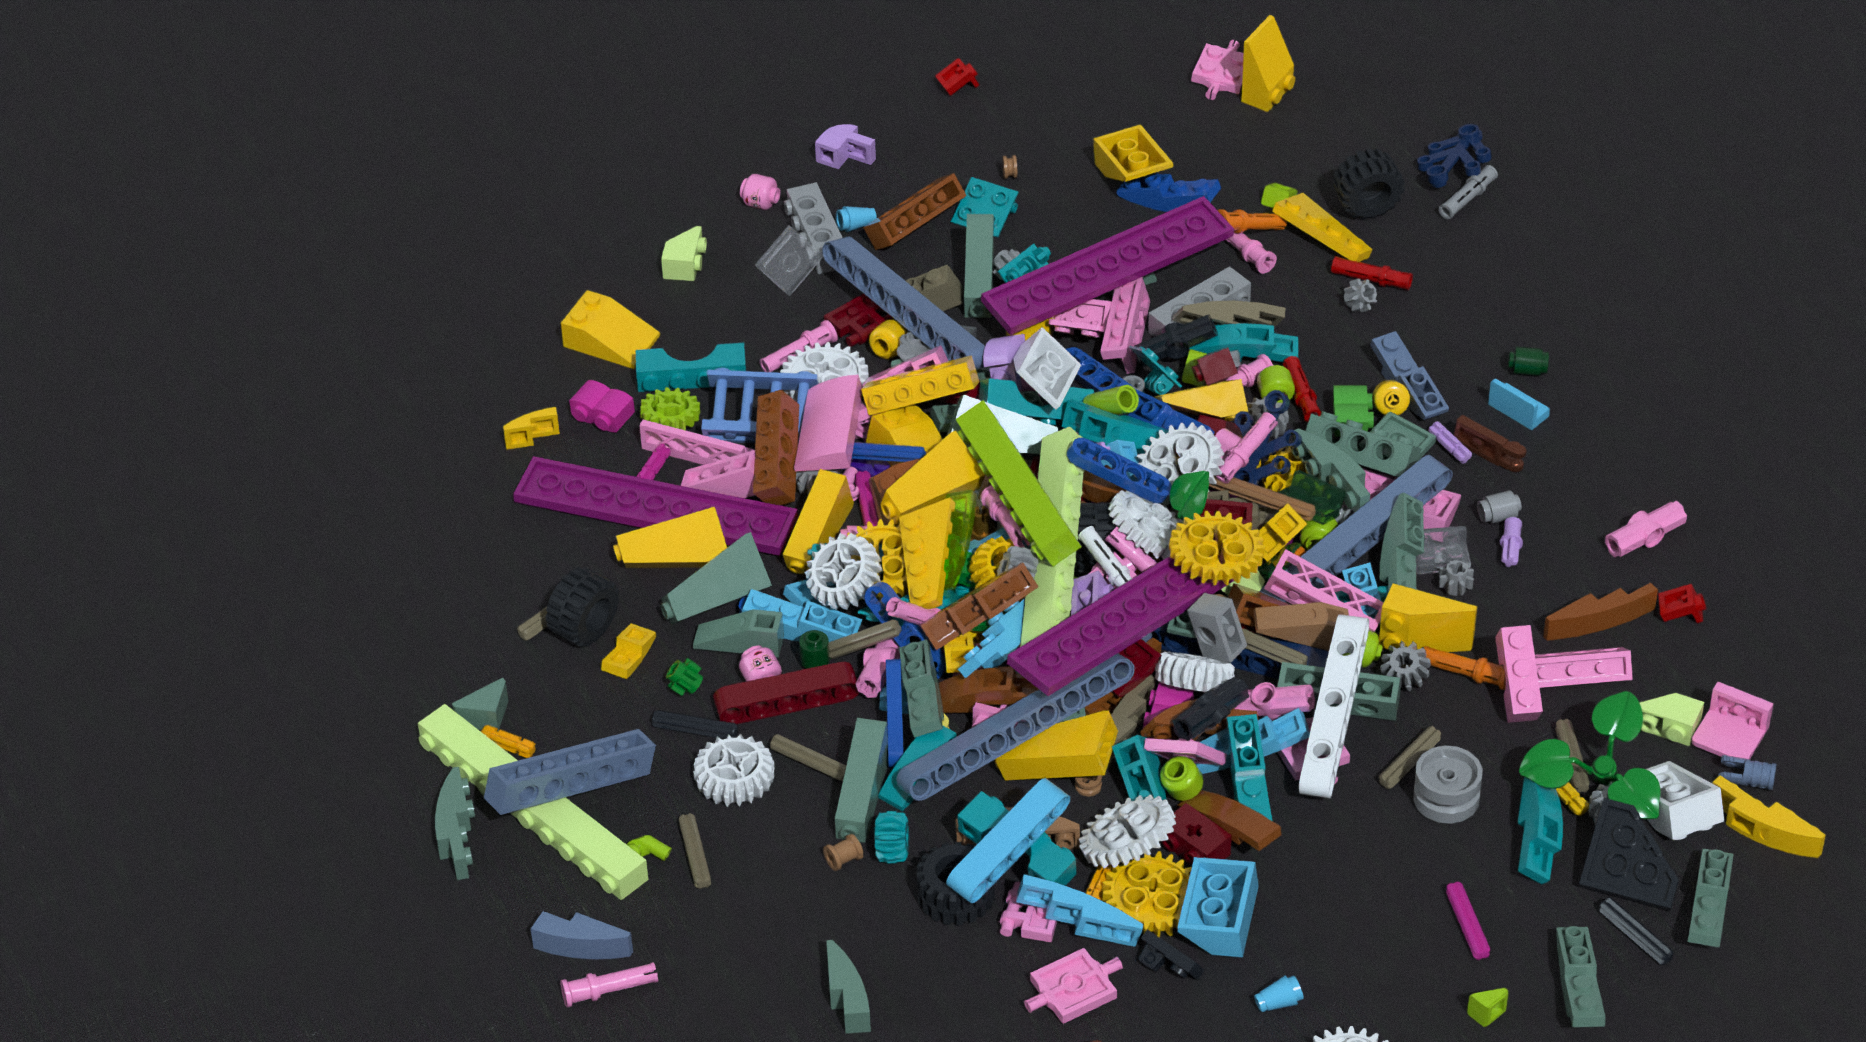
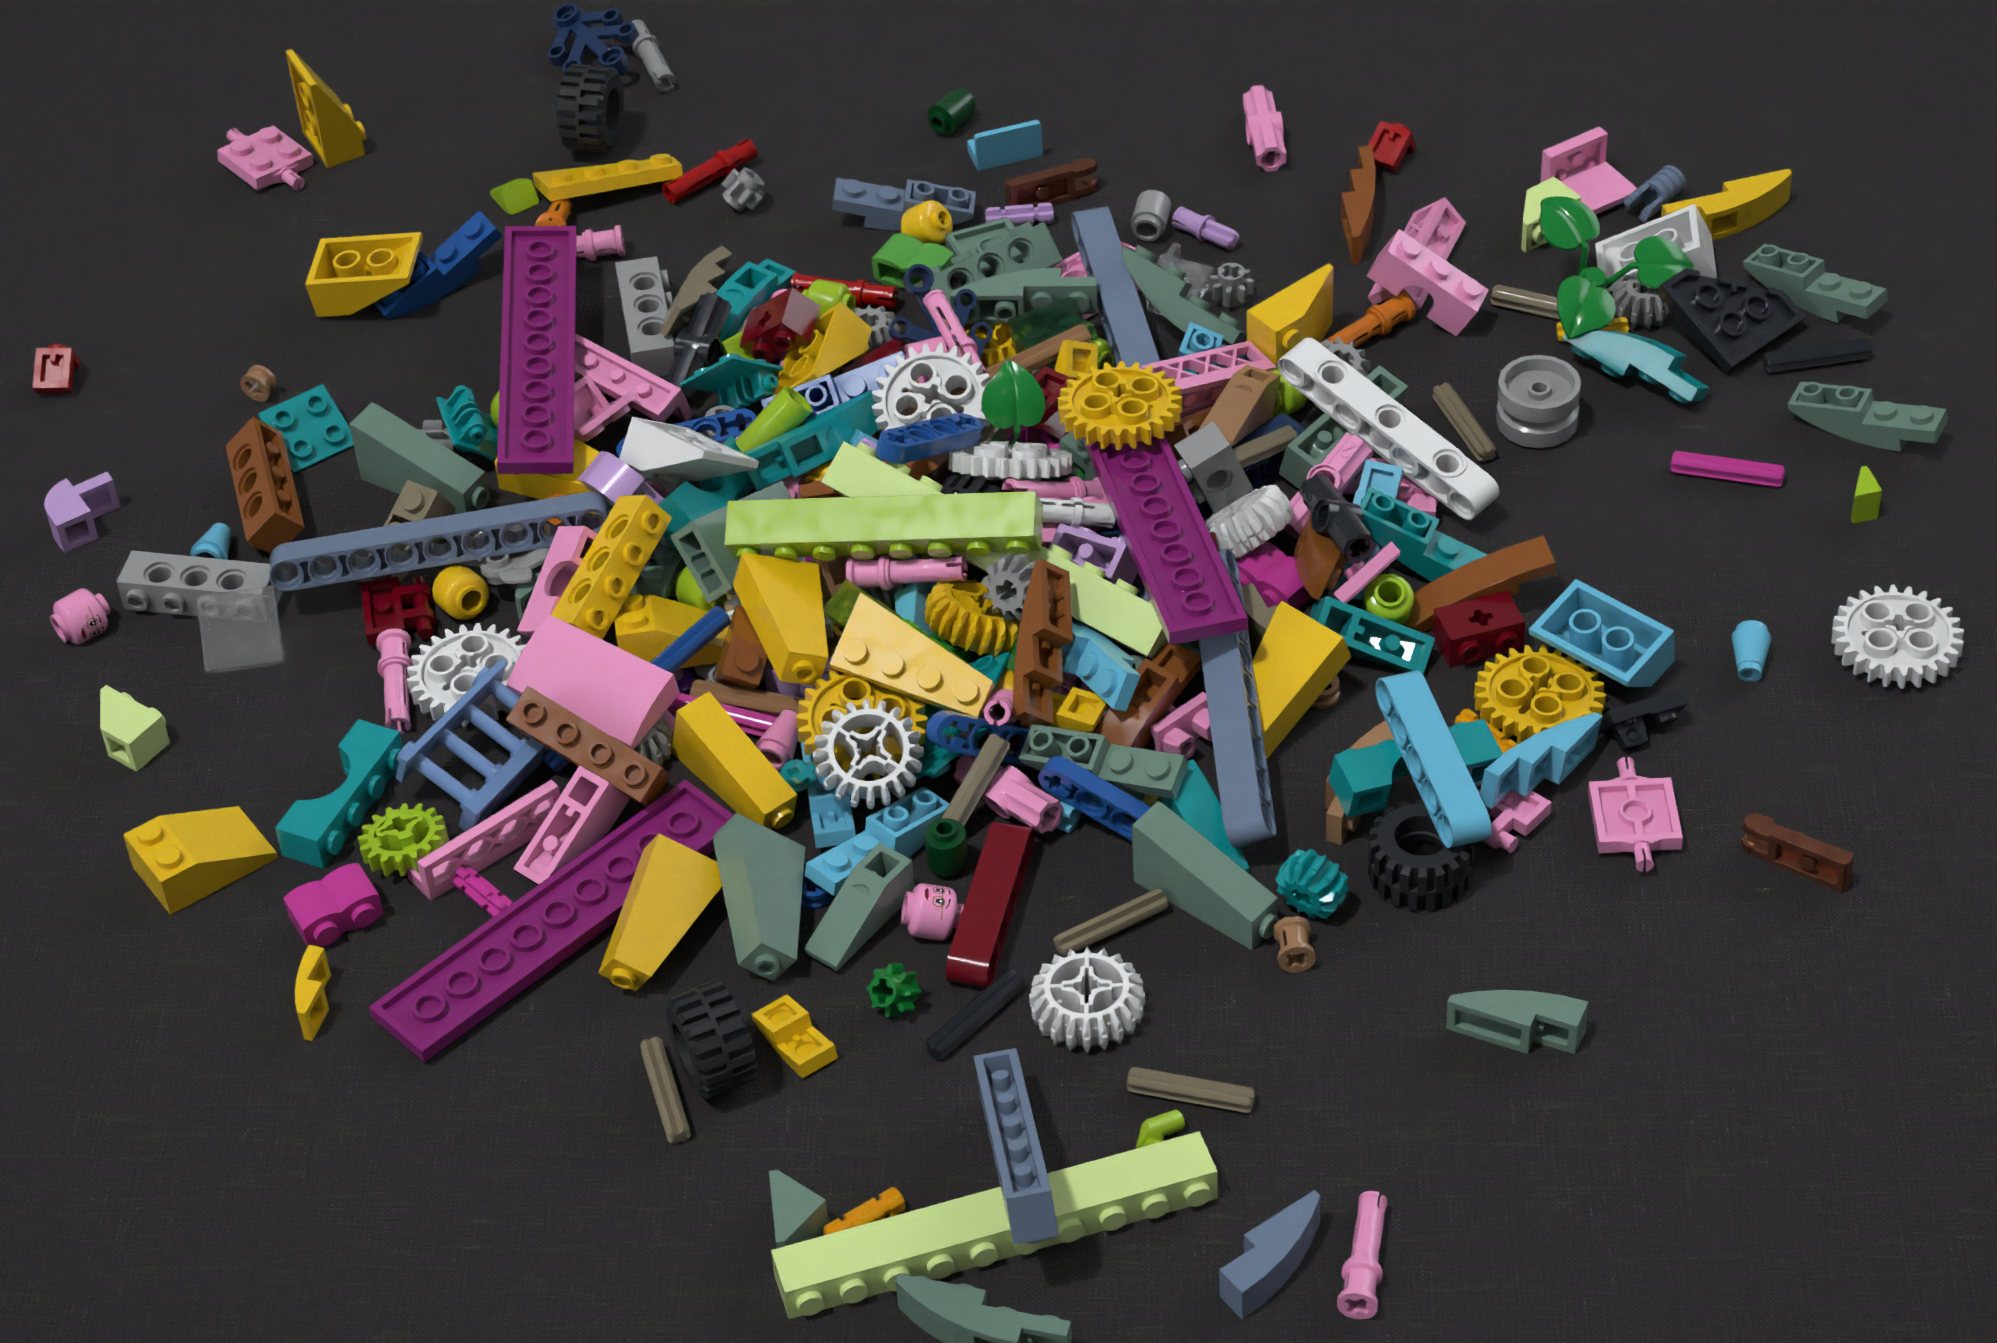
camera: 60 degrees left, 0 degrees up
(1109, 841) = (1459, 662): white gear -> none

